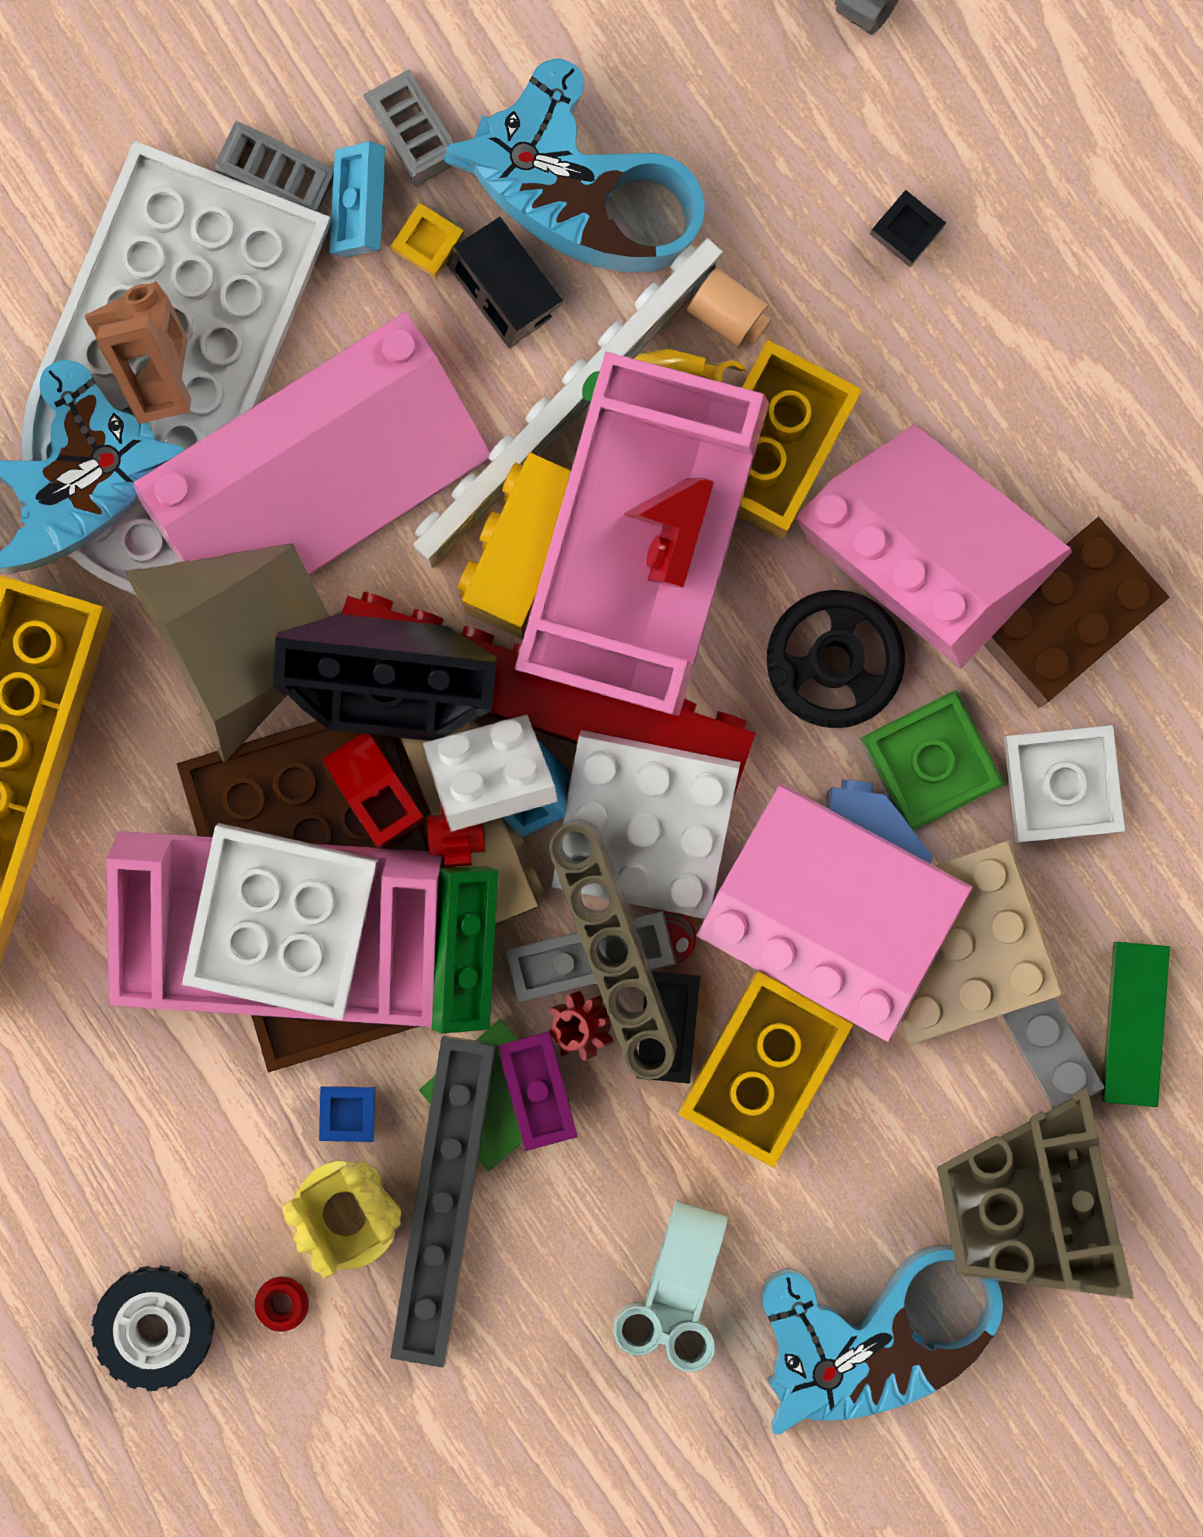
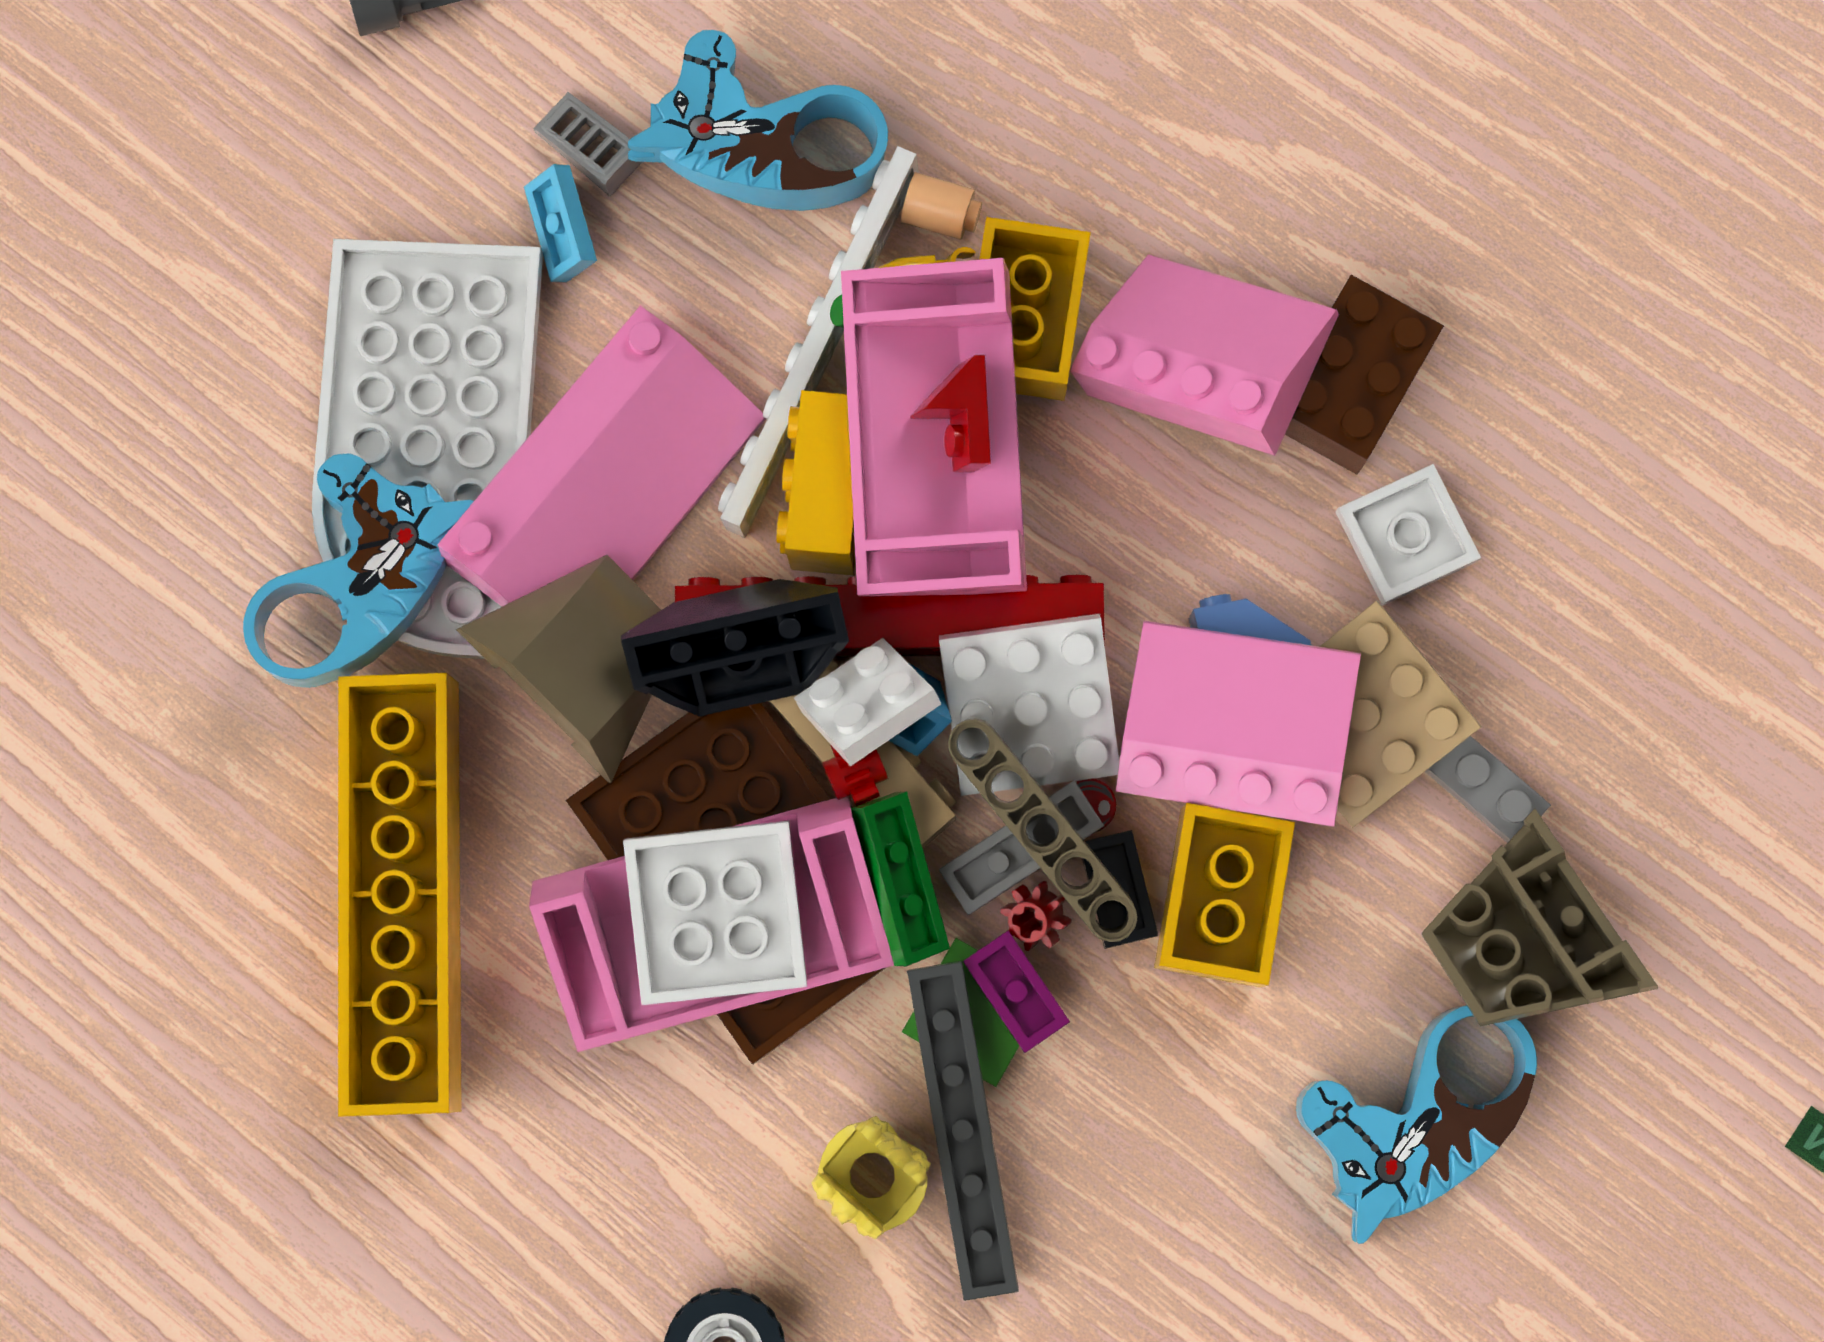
camera: 10 degrees left, 5 degrees down
(139, 326) = (400, 399): nougat tile -> none
(263, 144) = (455, 203): light grey slope -> none
(264, 1304) = (840, 1303): red plate -> none
(347, 1114) = (841, 1078): blue plate -> none
(373, 790) = (763, 758): red slope -> none
(427, 240) = (638, 239): yellow plate -> none
(504, 282) = (722, 252): black hinge -> none
(679, 1286) = (1216, 1133): light aqua piece -> none
(870, 691) = (1195, 509): black wheel -> none
(907, 228) = (1078, 79): black plate -> none
(932, 761) = (1276, 555): bright green tile -> none
(1135, 1024) = (1557, 735): green tile -> none

